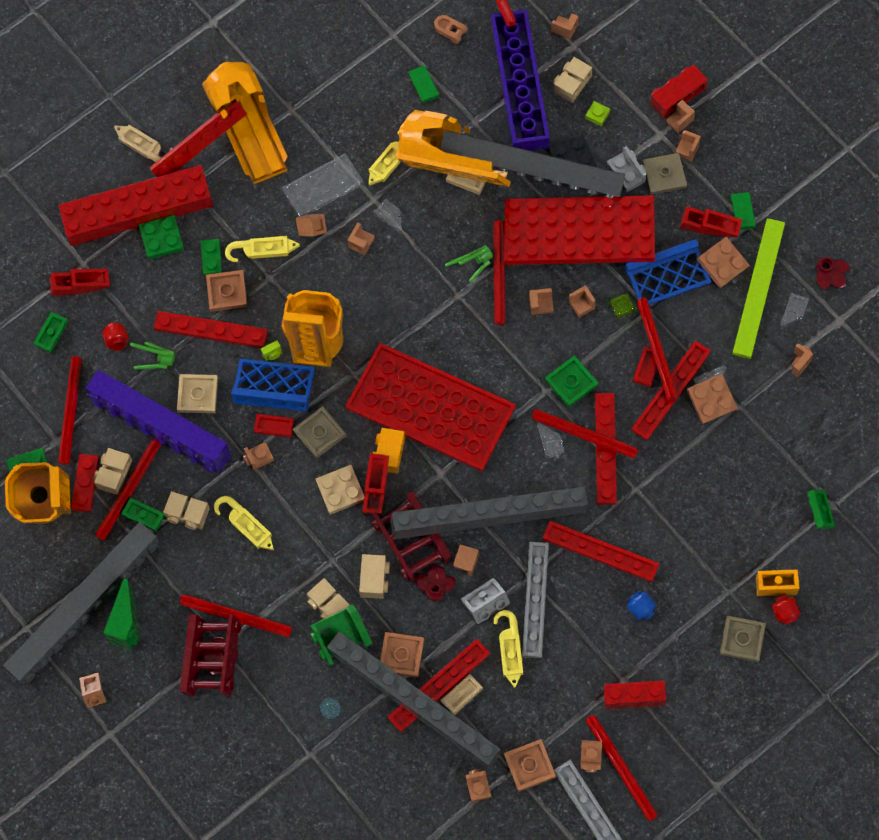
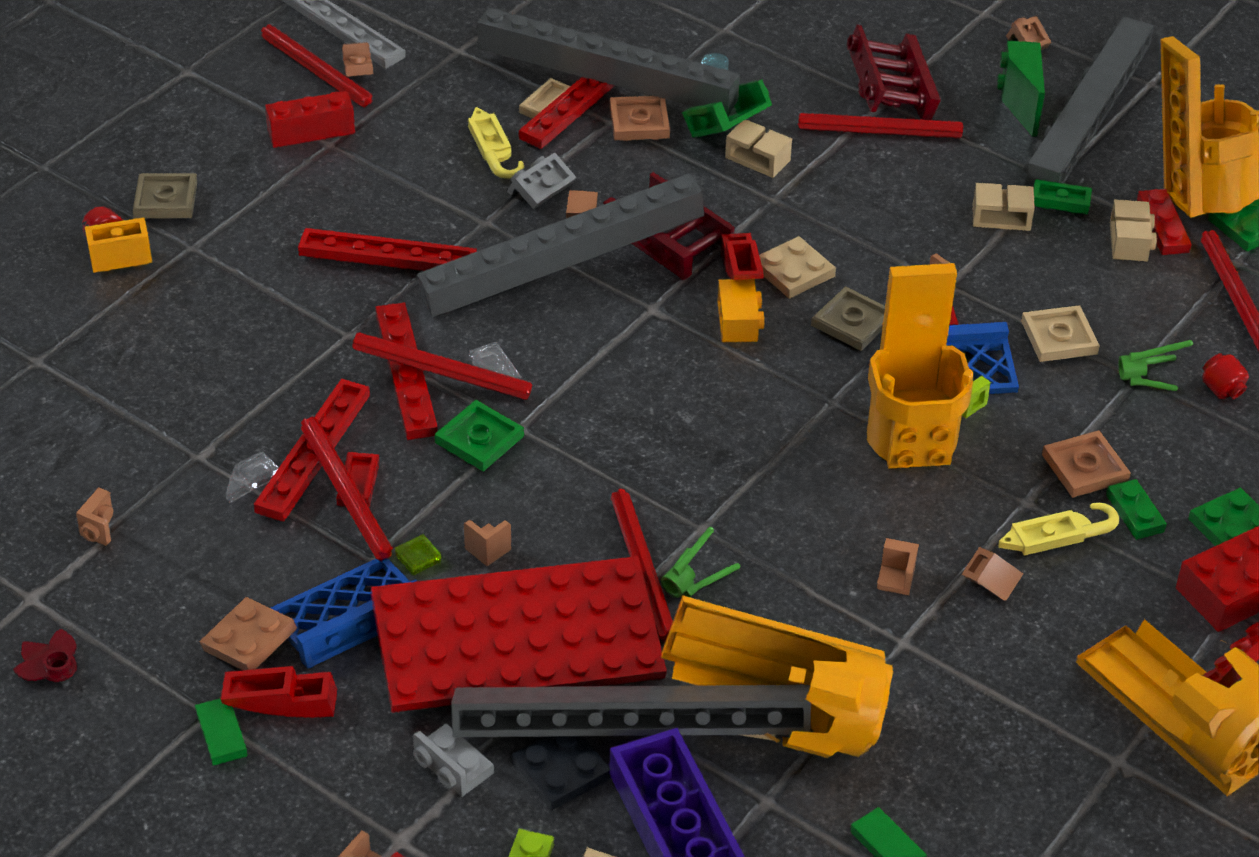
camera: 160 degrees right, 25 degrees down
(128, 490) = (1098, 224): red axle -> none
(158, 422) = (1098, 277): dark purple brick -> none
(210, 329) = (1083, 417): red plate -> none
(246, 523) = (911, 208): light yellow plate -> none
(322, 185) = (1001, 644): clear tile -> none
(373, 576) = (711, 176): tan piece -> none
(384, 164) = (905, 690): light yellow plate -> none
(390, 215) = (863, 619): clear tile -> none
(431, 407) = (695, 372): red plate -> none
(435, 580) = (615, 188): dark red plate -> none
(529, 765) = (437, 48): nougat plate -> none
(535, 600) = (470, 195): light grey tile -> none
(541, 301) = (562, 534): nougat panel -> none
(641, 605) = (316, 203): blue head -> none
(664, 173) = (379, 768): dark tan plate -> none
(688, 145) = (339, 817): nougat panel -> none
(711, 399) = (244, 447): nougat plate -> none
(758, 288) = (178, 621): lime tile -> none
(795, 309) = (112, 597): clear tile -> none
(821, 509) = (55, 341): green plate -> none

